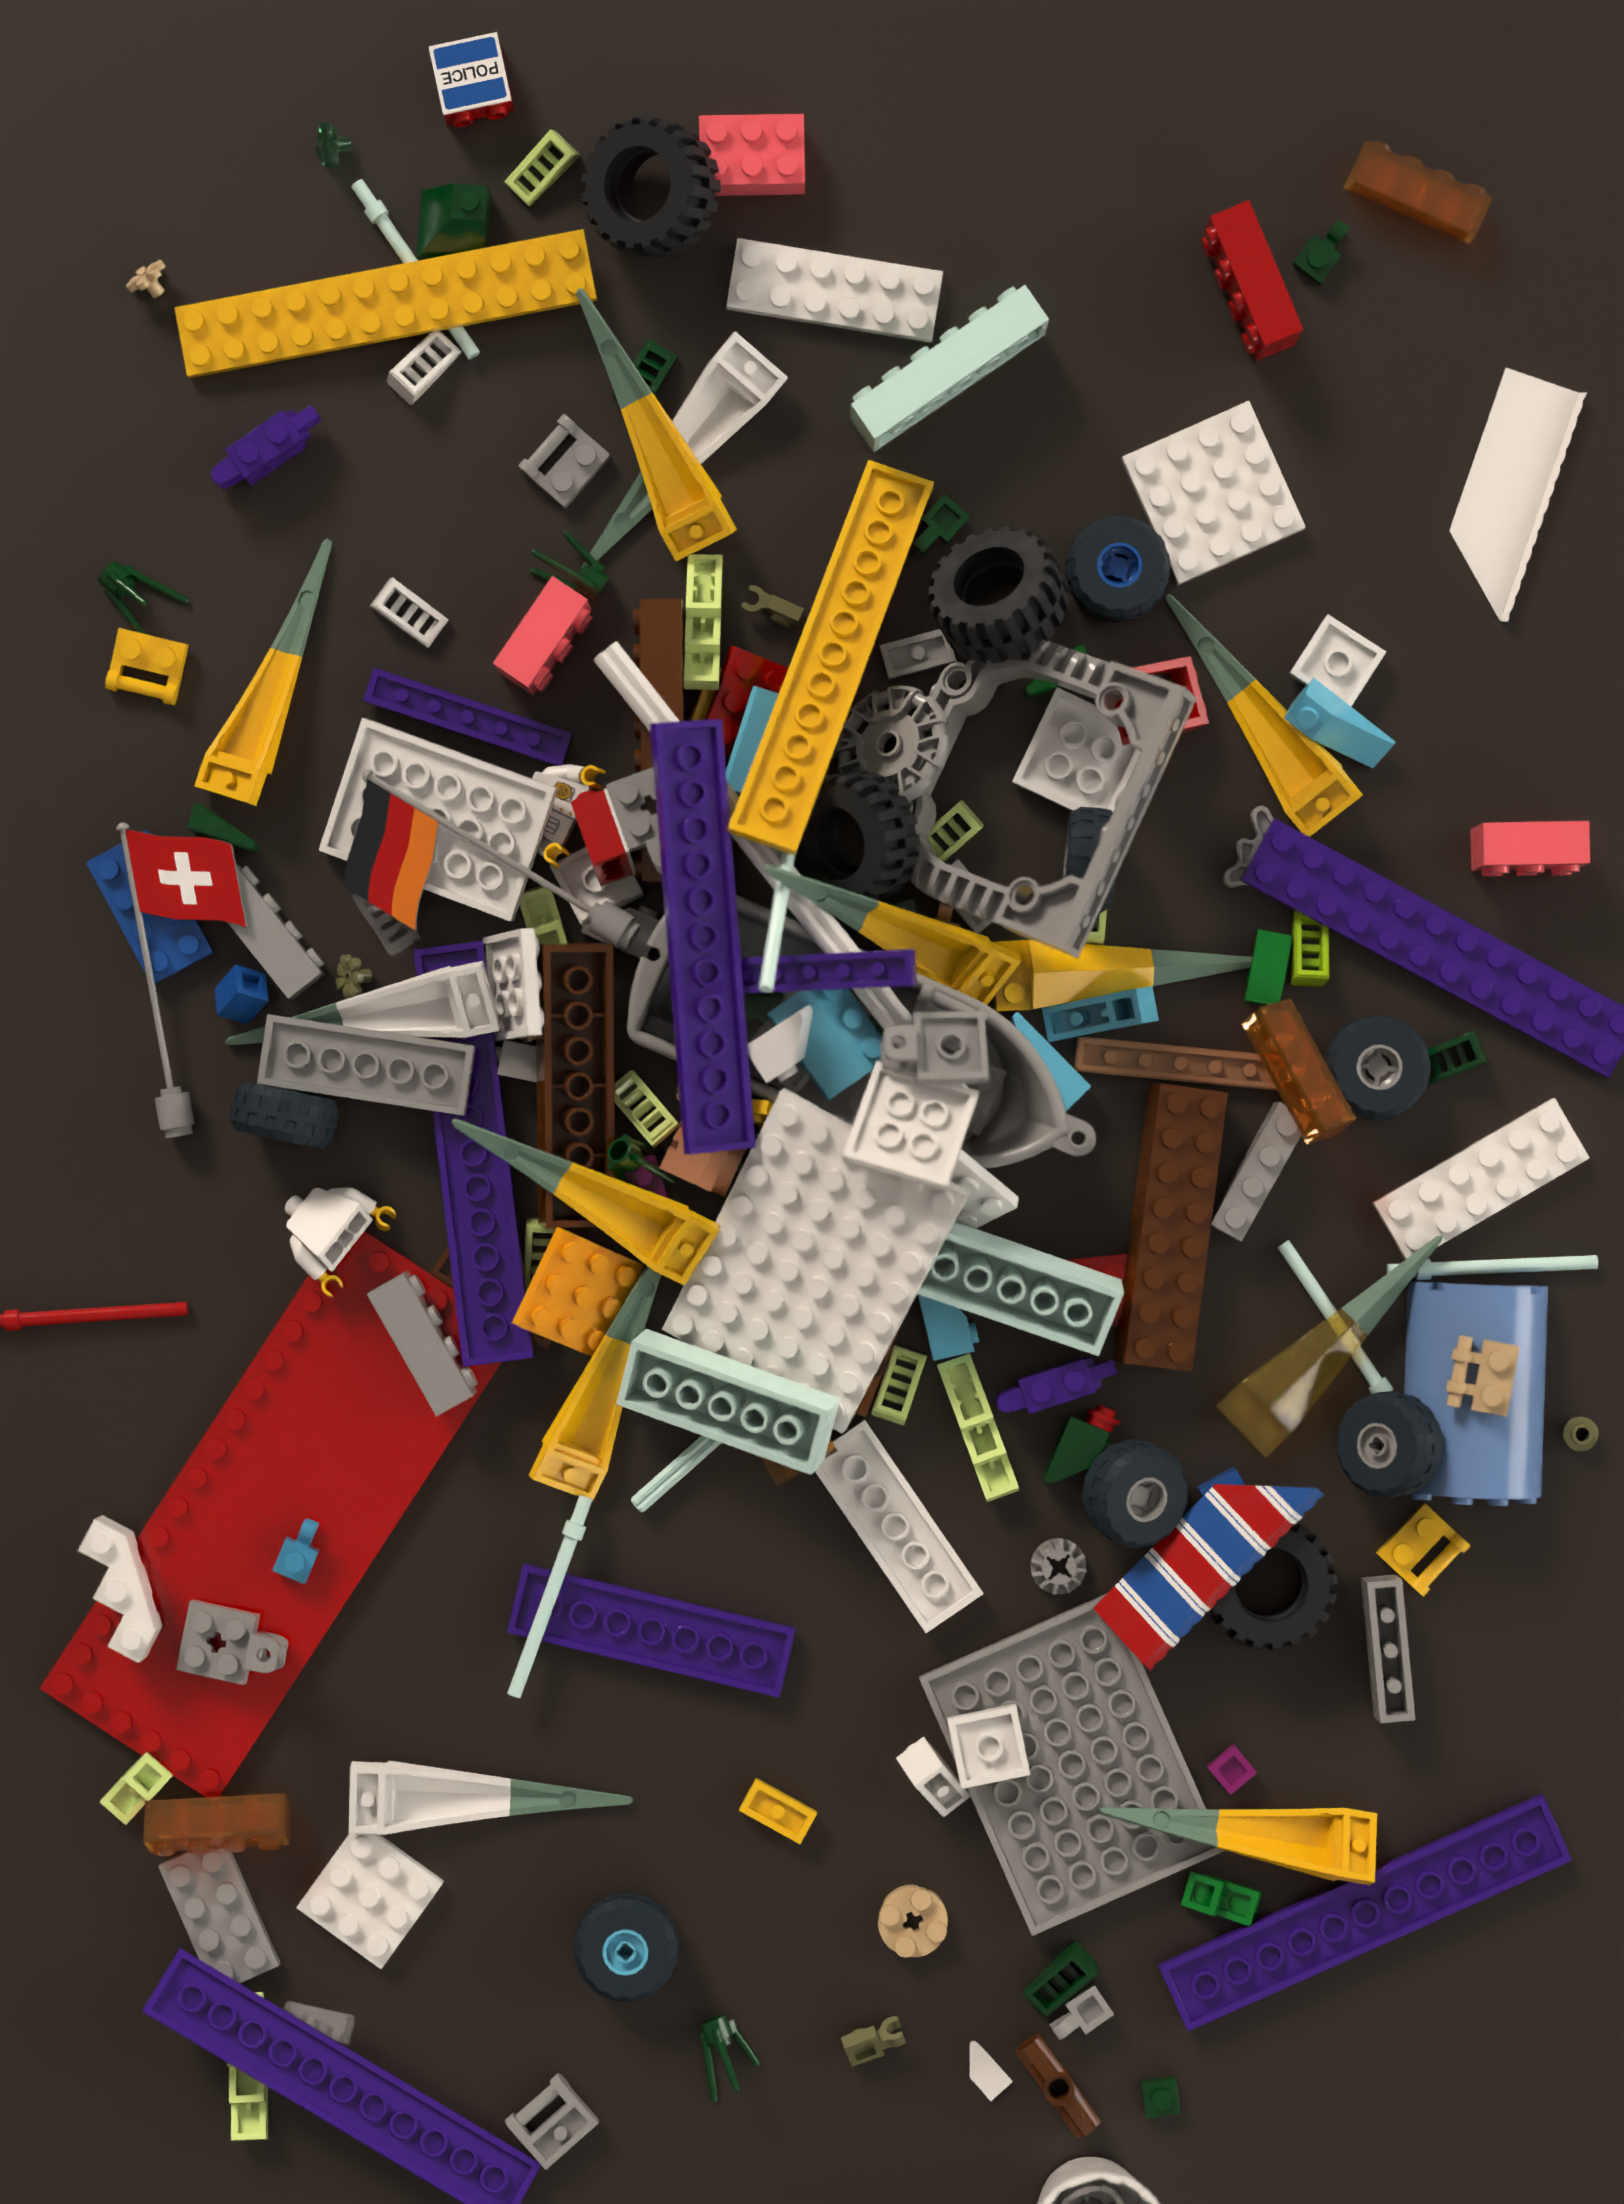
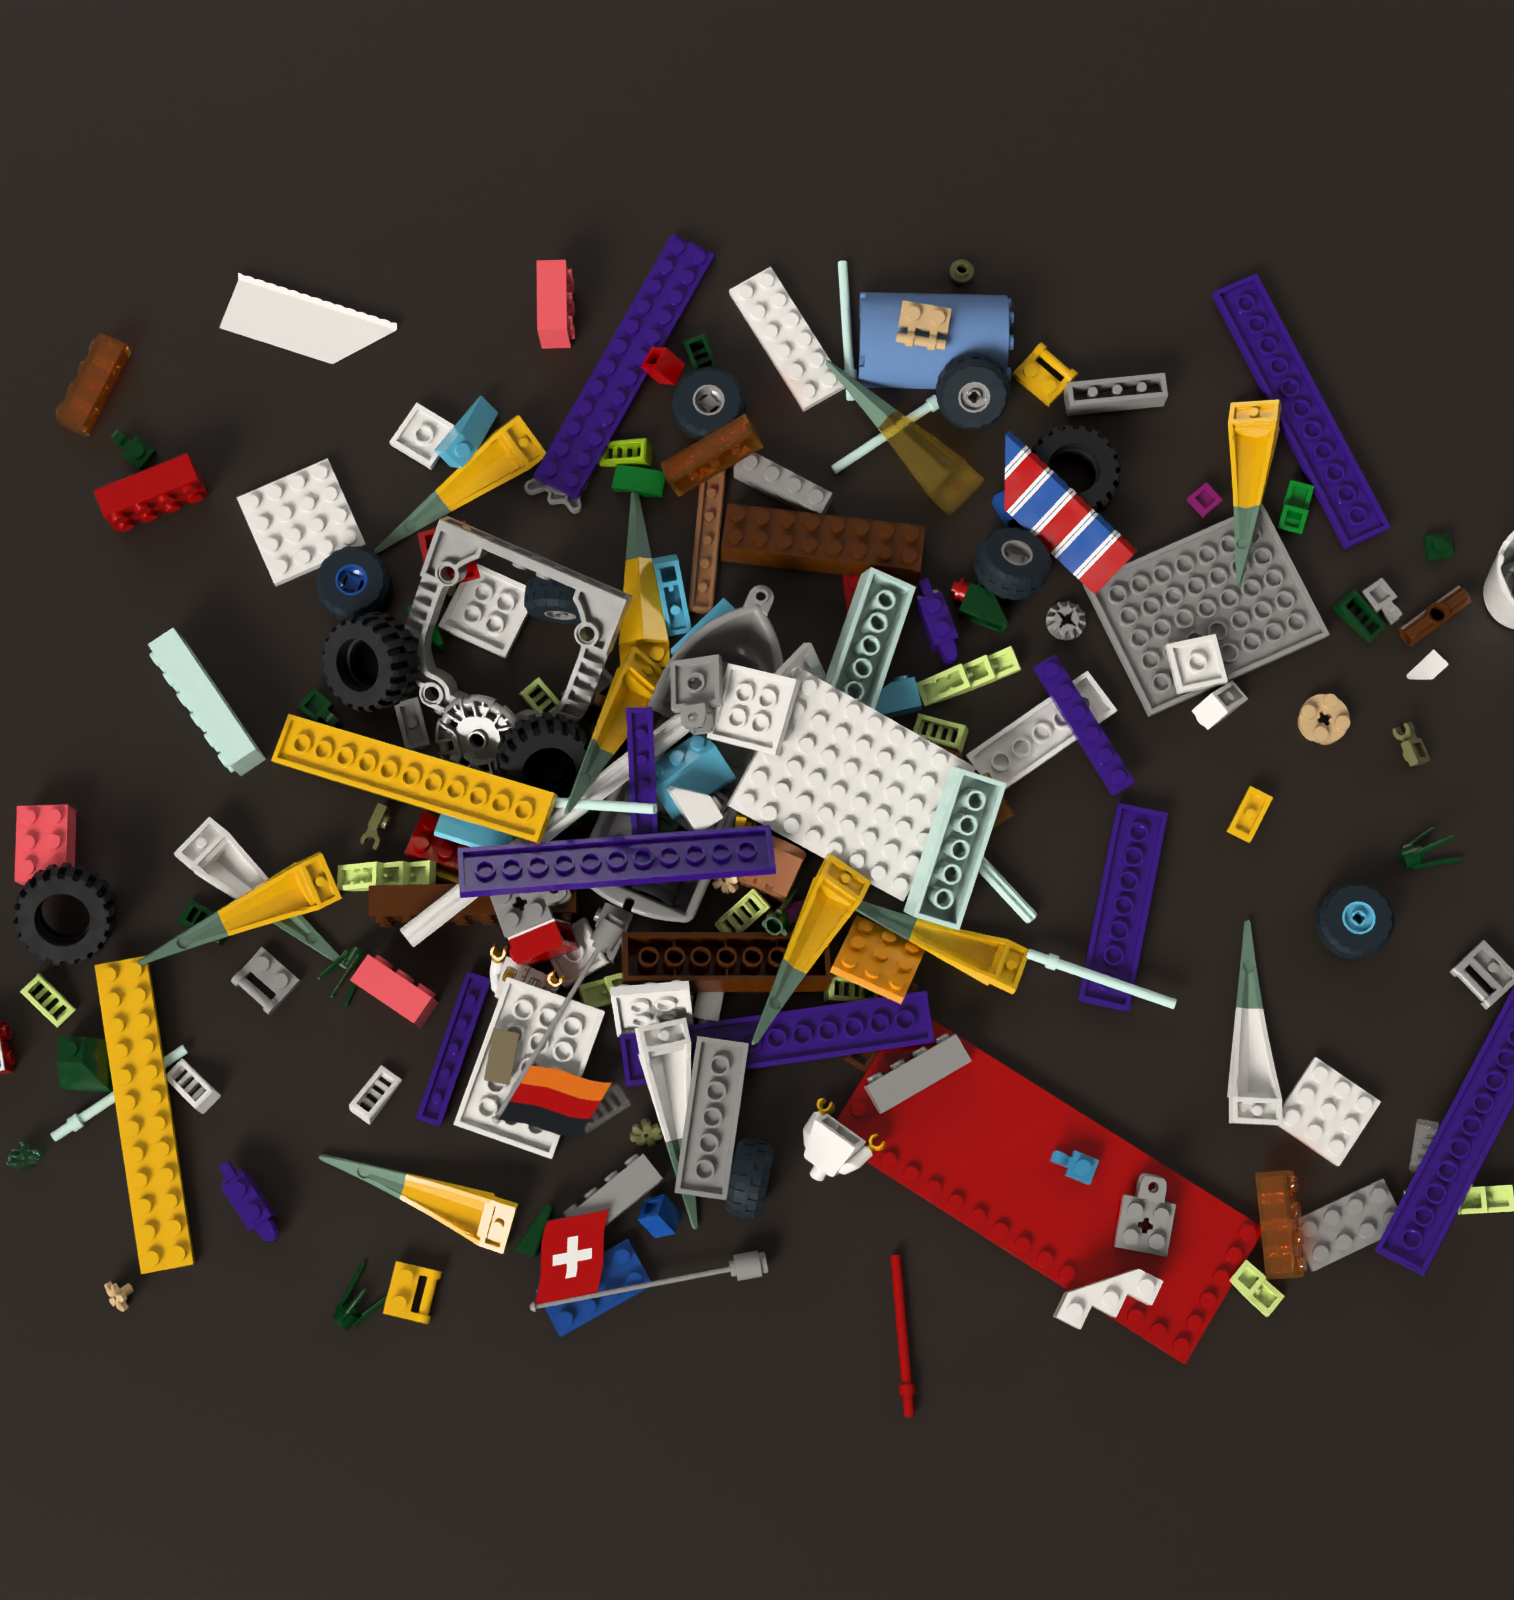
camera: 90 degrees left, 10 degrees down
(449, 781) = (501, 1056): none -> dark tan tile
(834, 290) = (147, 787): white plate -> none
(903, 1585) = (1083, 725): none -> dark purple plate
(1436, 1002) = (663, 365): none -> red brick

